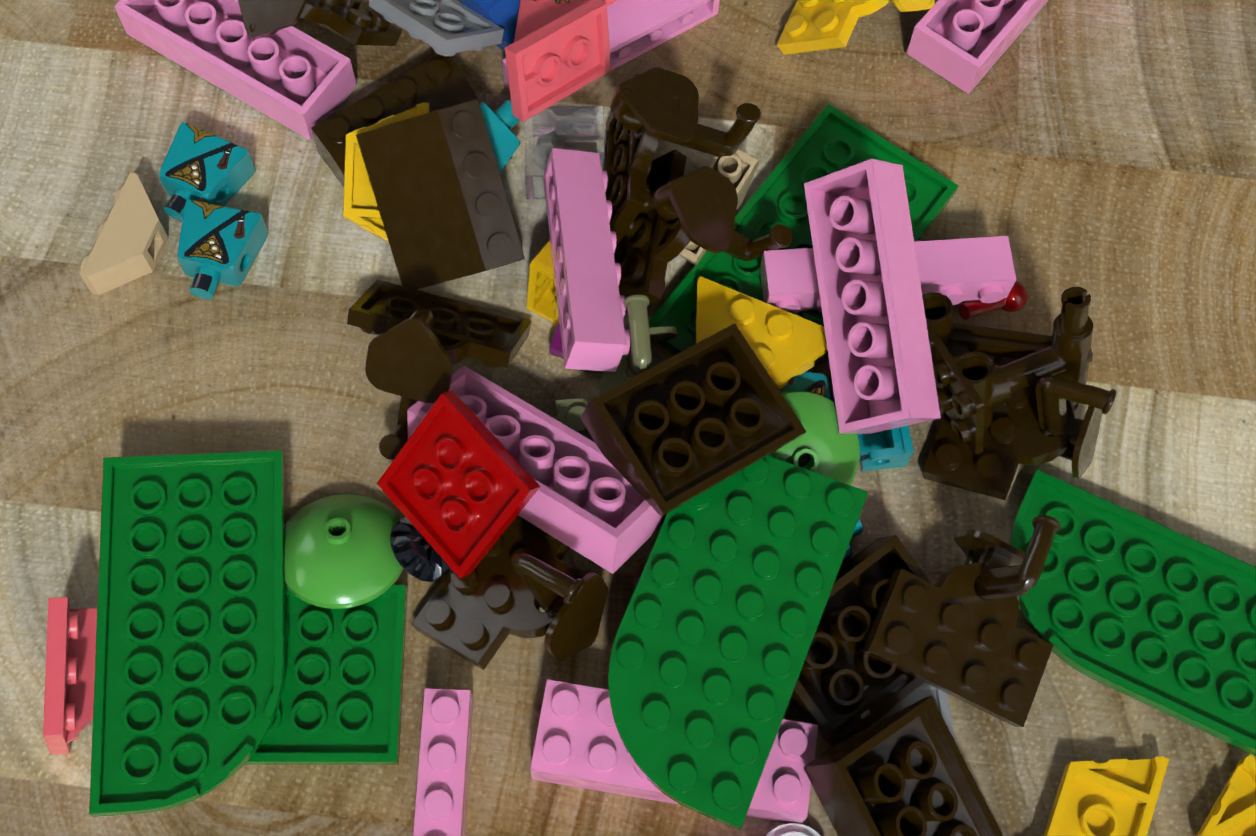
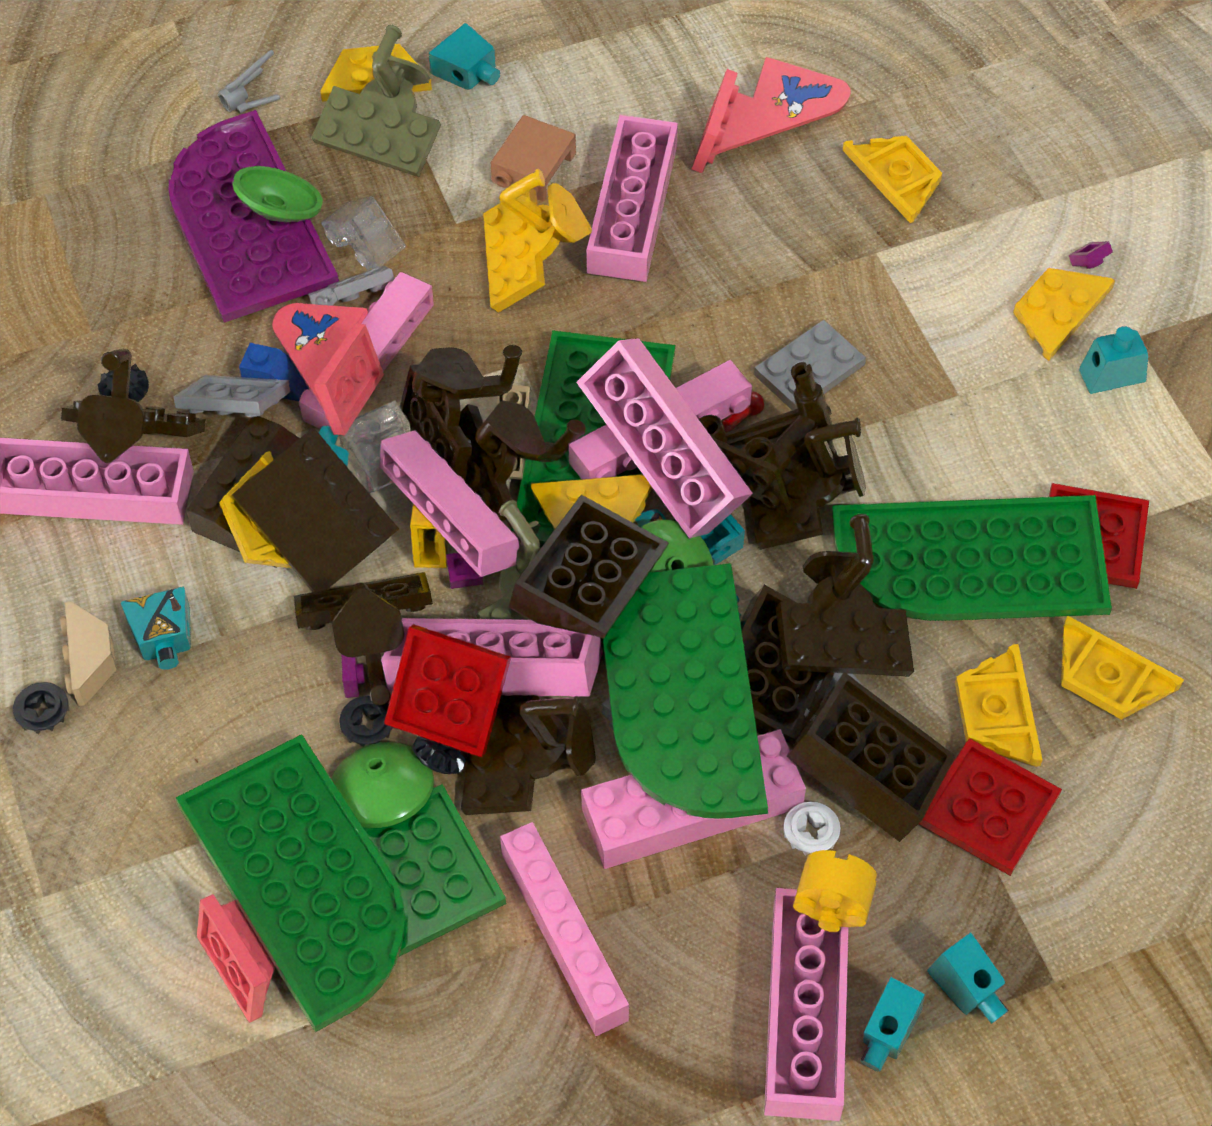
camera: 25 degrees left, 10 degrees down
(48, 261) = (31, 699): none -> black gear
(202, 169) = (115, 577): teal torso -> none
(354, 454) = (352, 717): none -> black gear
(381, 407) = (352, 676): none -> magenta plate
(1119, 275) = (822, 348): none -> light grey plate

